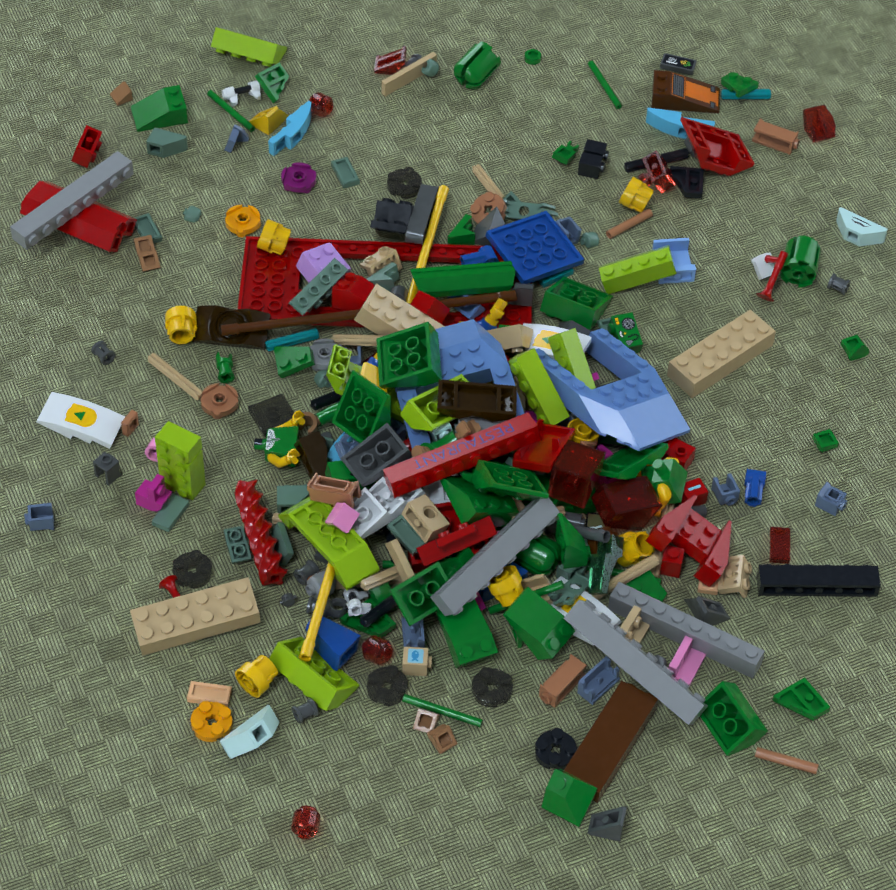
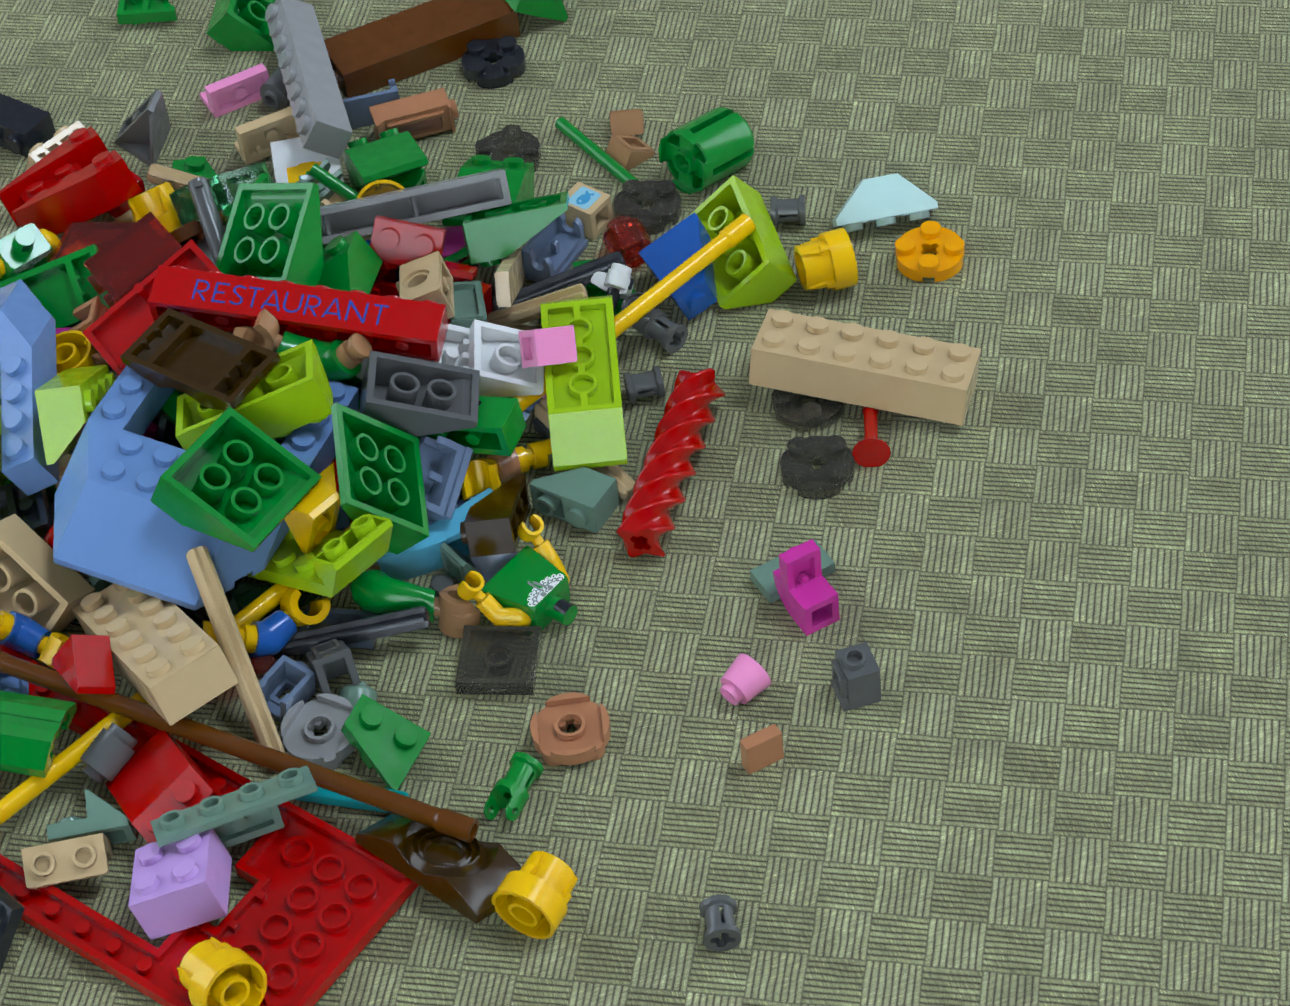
camera: 140 degrees left, 5 degrees down
(40, 517) = (1027, 640): sand blue window -> none
(80, 419) = (849, 795): white slope -> none
(175, 376) = (615, 819): tan axle -> none
(180, 460) = (733, 567): lime piece -> none
(209, 692) = (909, 289): light nougat tile -> none
(237, 544) = (720, 474): sand green slope -> none
(283, 544) = (644, 431): sand green tile -> none
(288, 599) = (700, 361): dark grey piece -> none
(305, 822) = (884, 84): clear red head -> none
(314, 584) = (639, 351): light grey head -> none
(333, 490) = (545, 410): nougat window -> none
(373, 719) = (707, 149): none -> green cylinder
(676, 624) = (191, 102): light grey brick -> none

